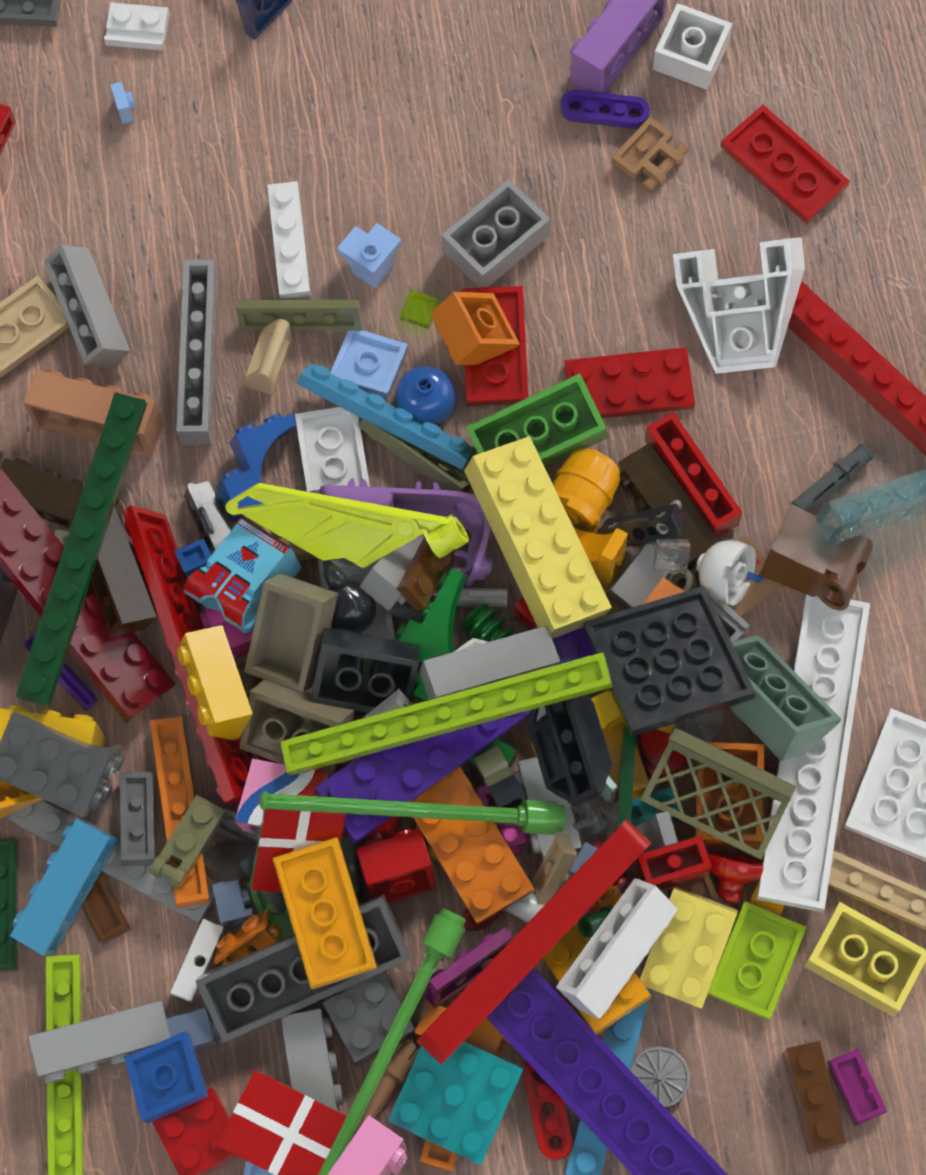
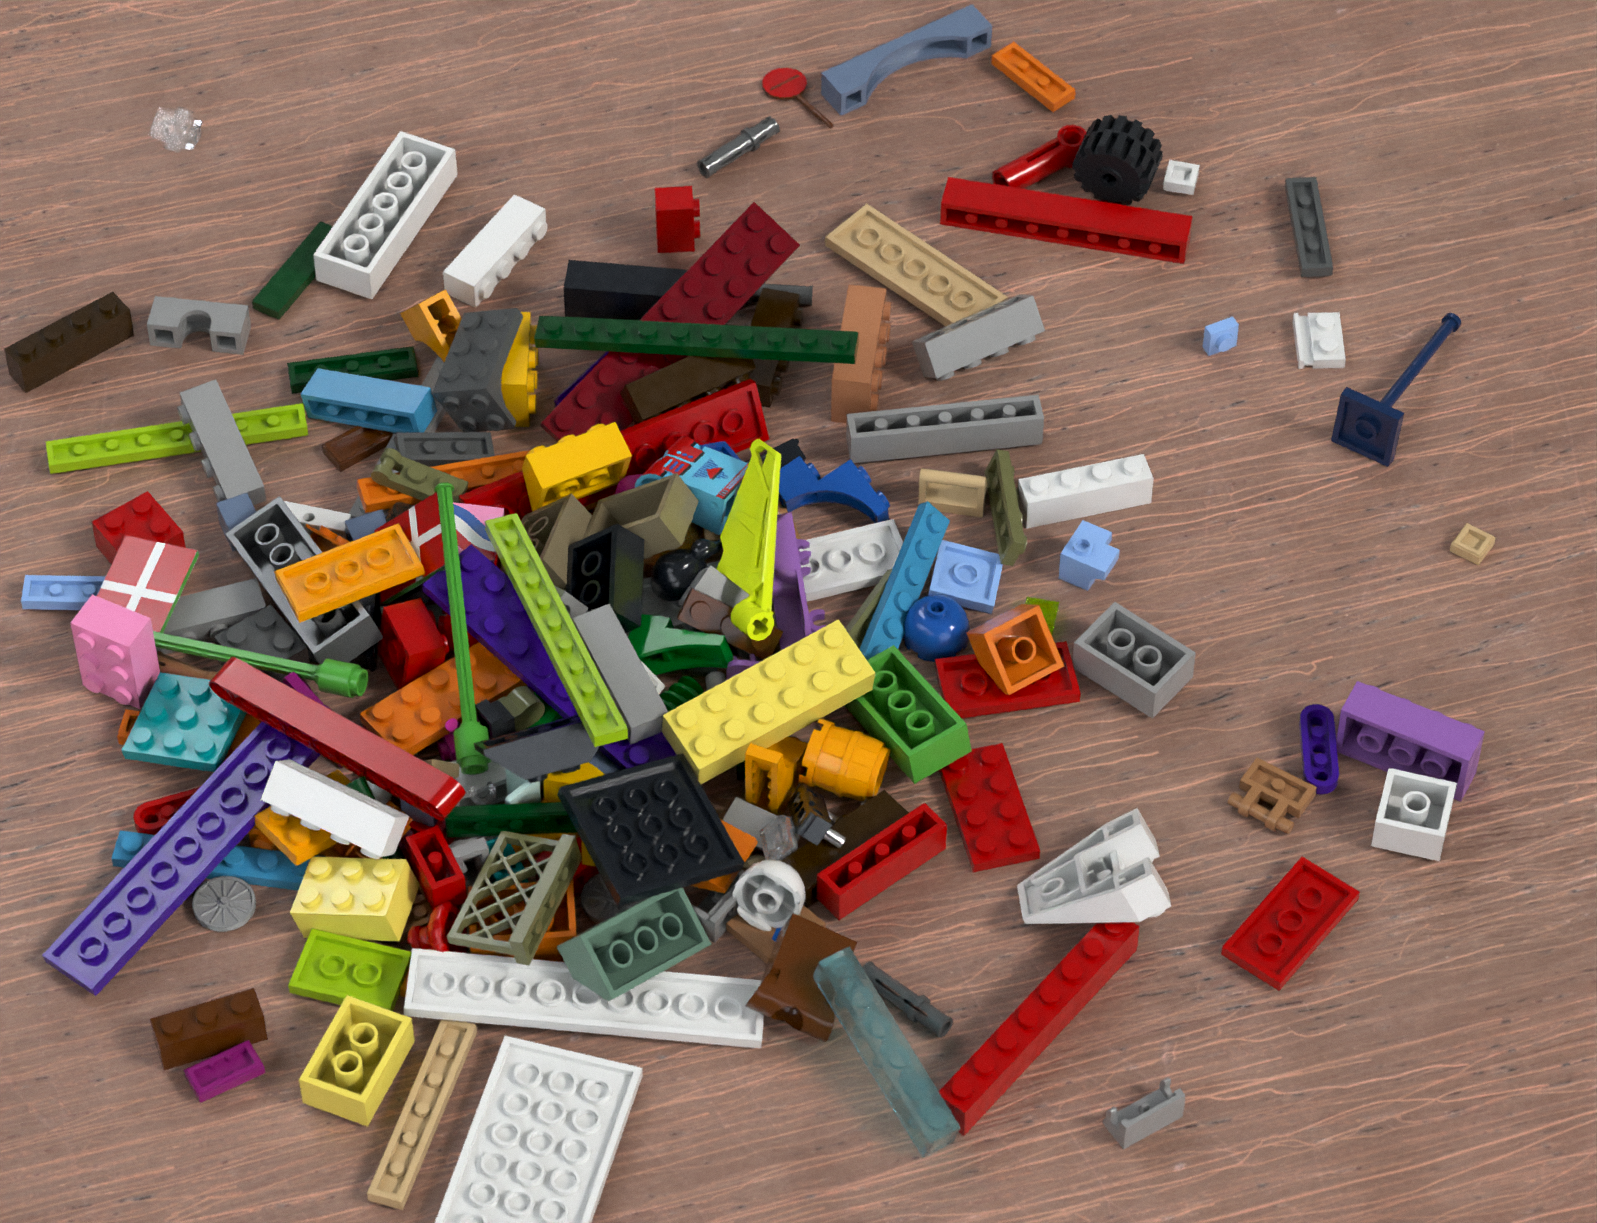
camera: 80 degrees right, 20 degrees down
(166, 1077) = (188, 492): blue plate -> none

